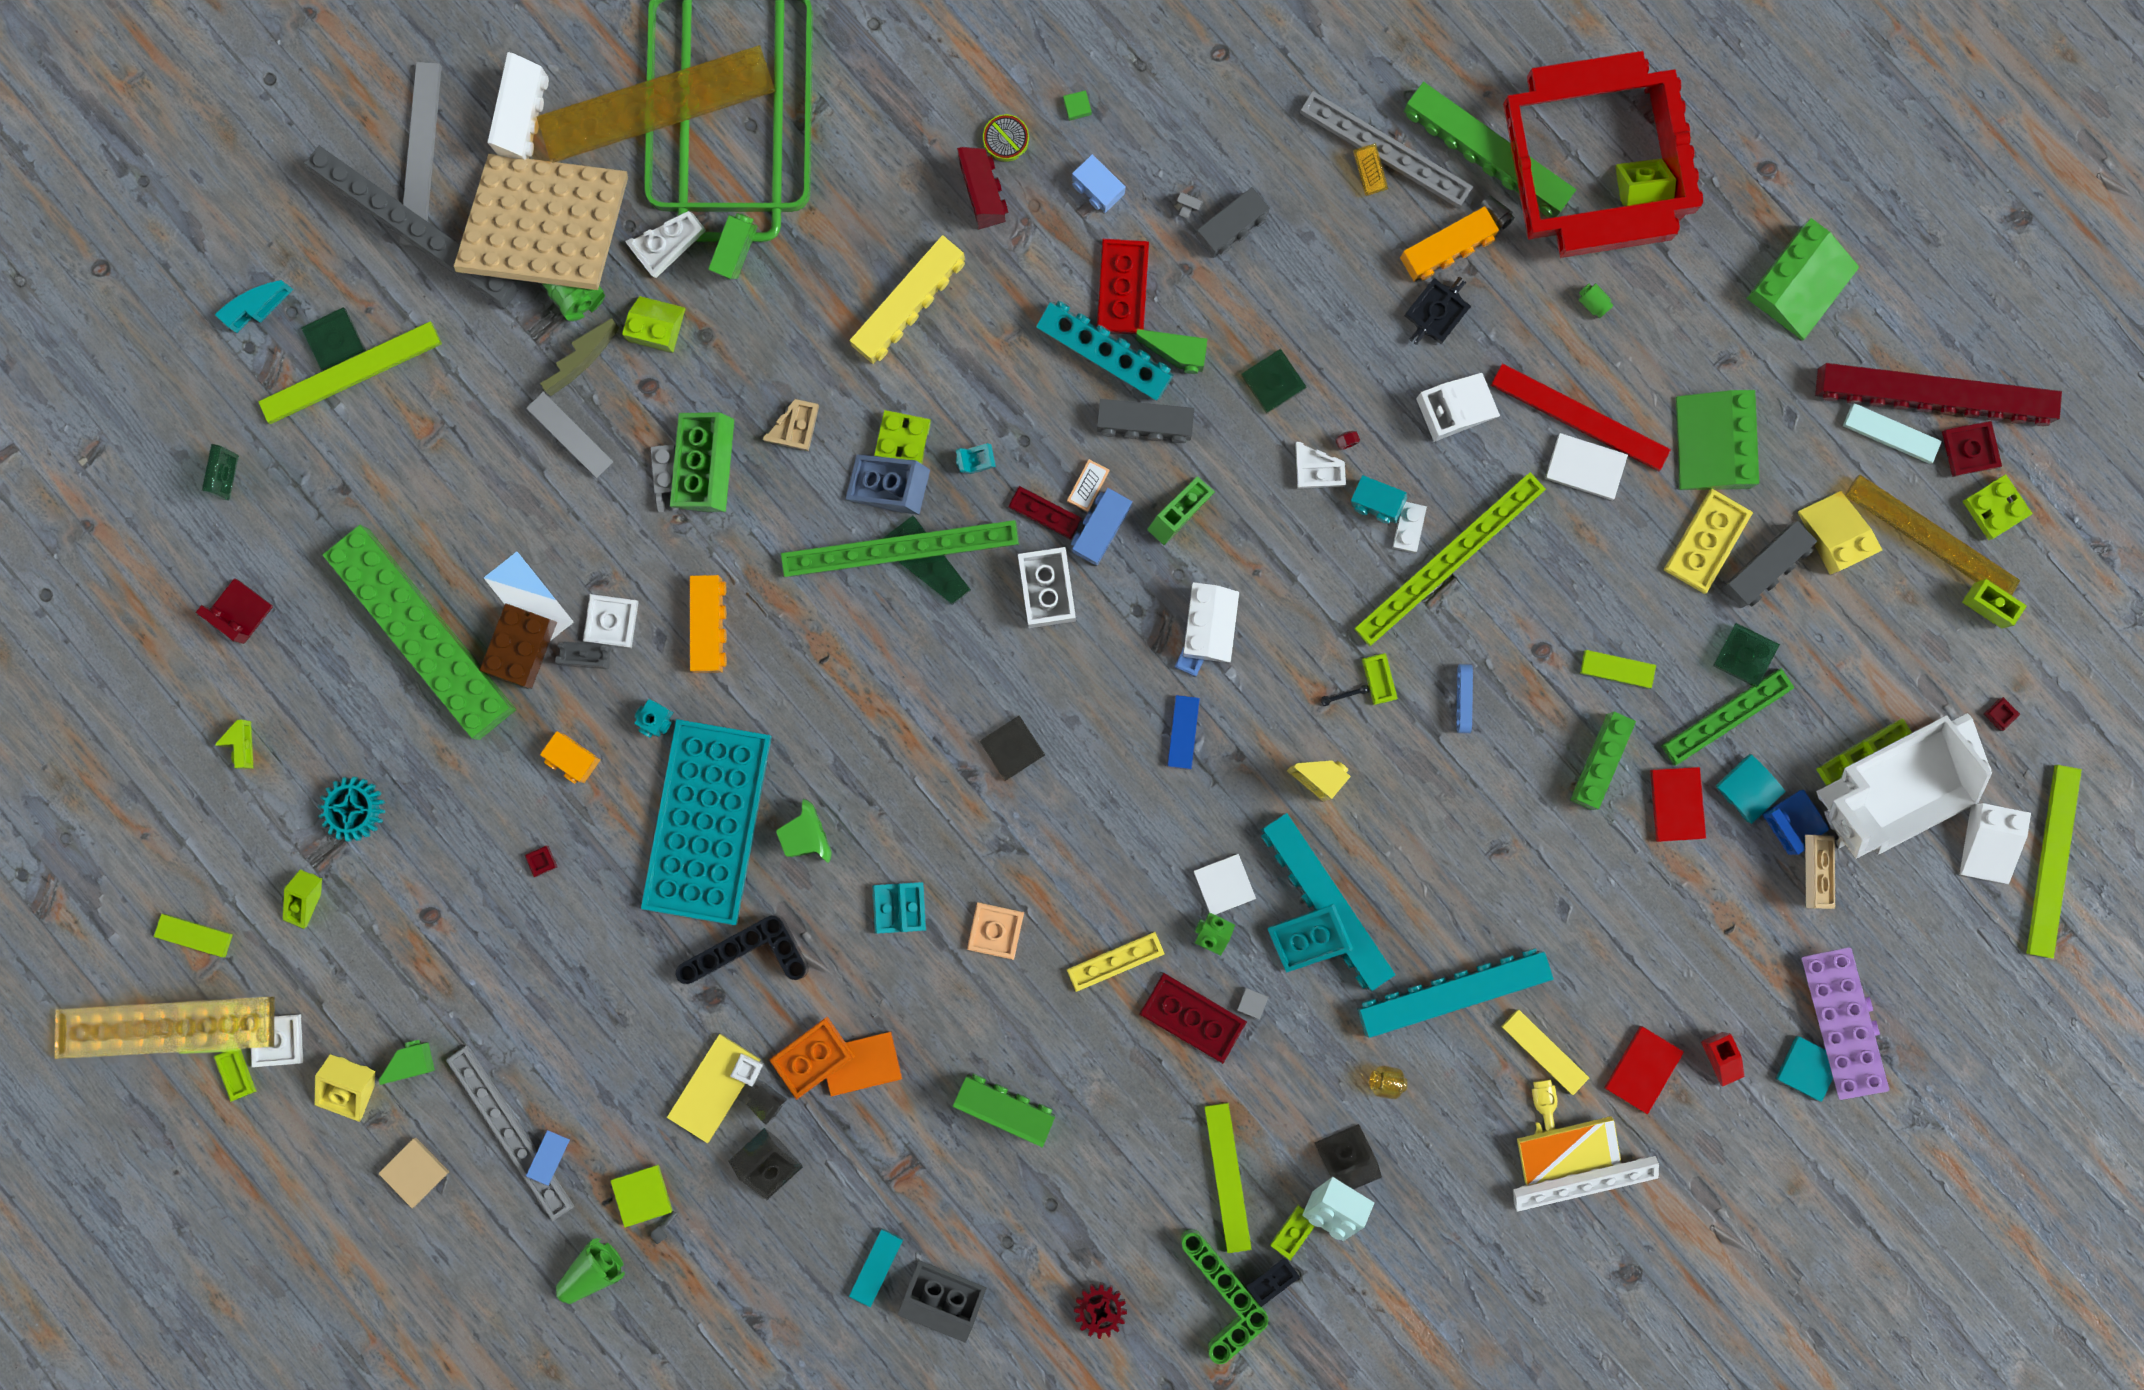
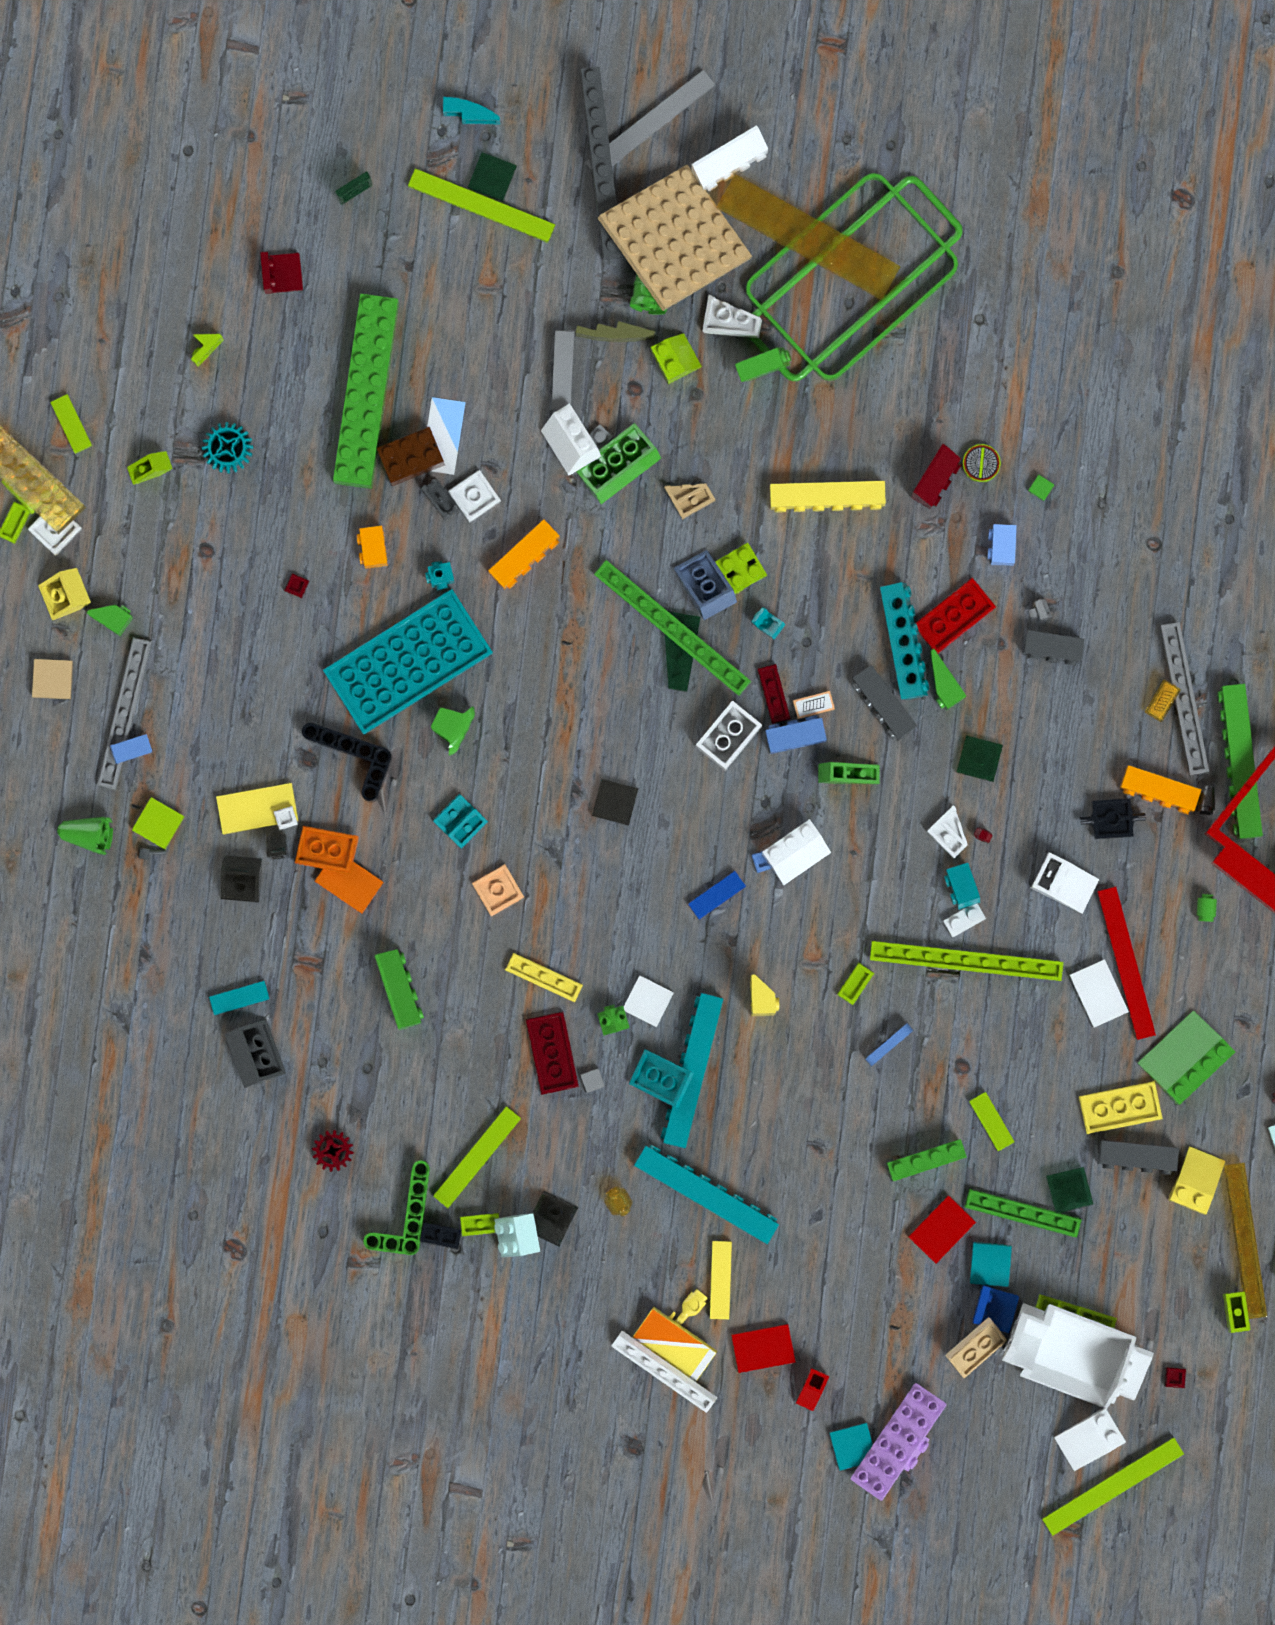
camera: 50 degrees right, 0 degrees up
(639, 485) = (570, 440): none -> white slope
(1325, 700) = (813, 963): black hinge -> none

